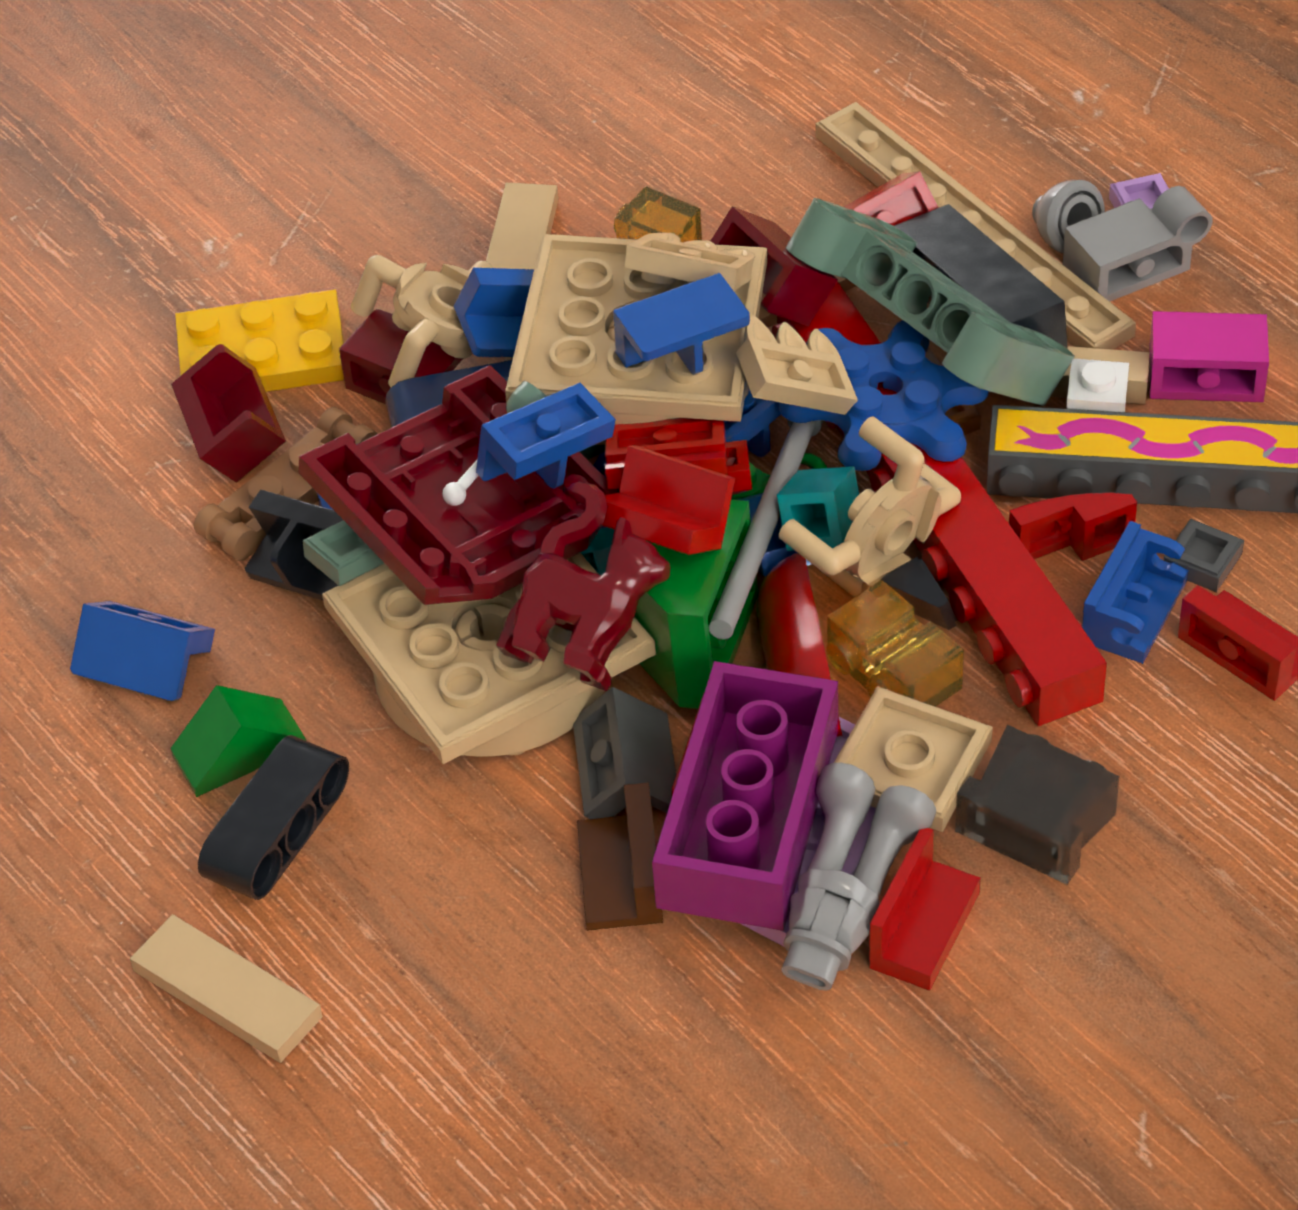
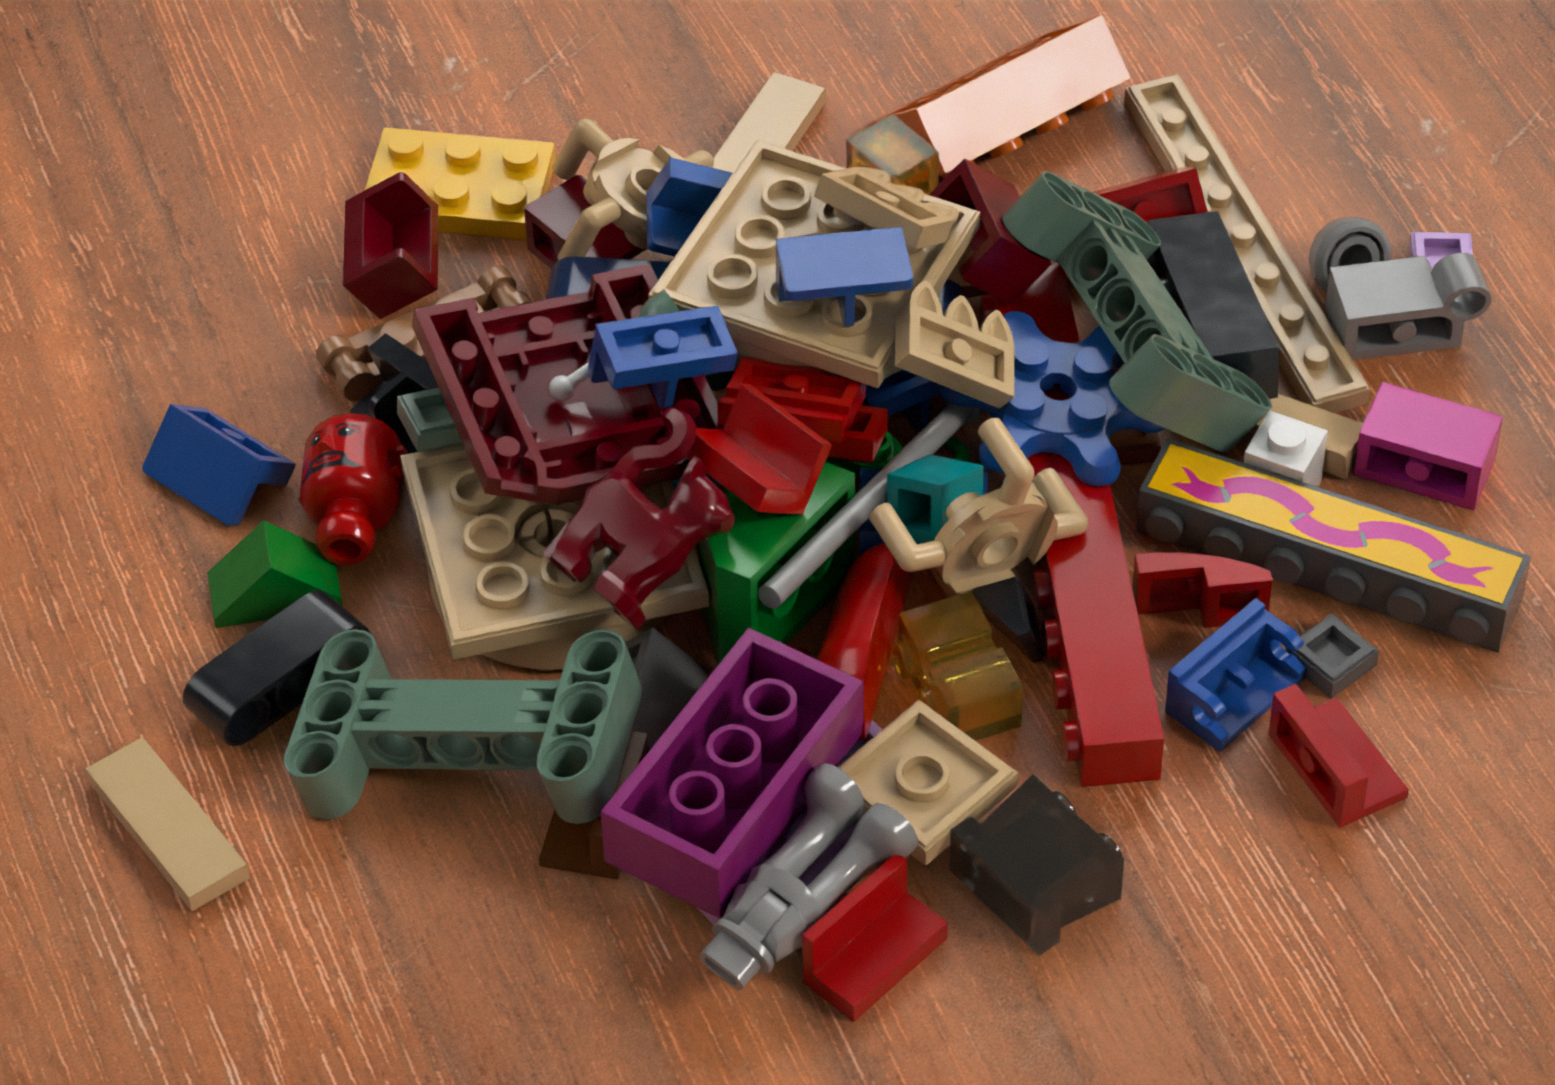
camera: 15 degrees right, 0 degrees up
(278, 632) = (350, 484): none -> red piece
(382, 842) = (563, 727): none -> sand green beam
(729, 146) = (1017, 93): none -> slope

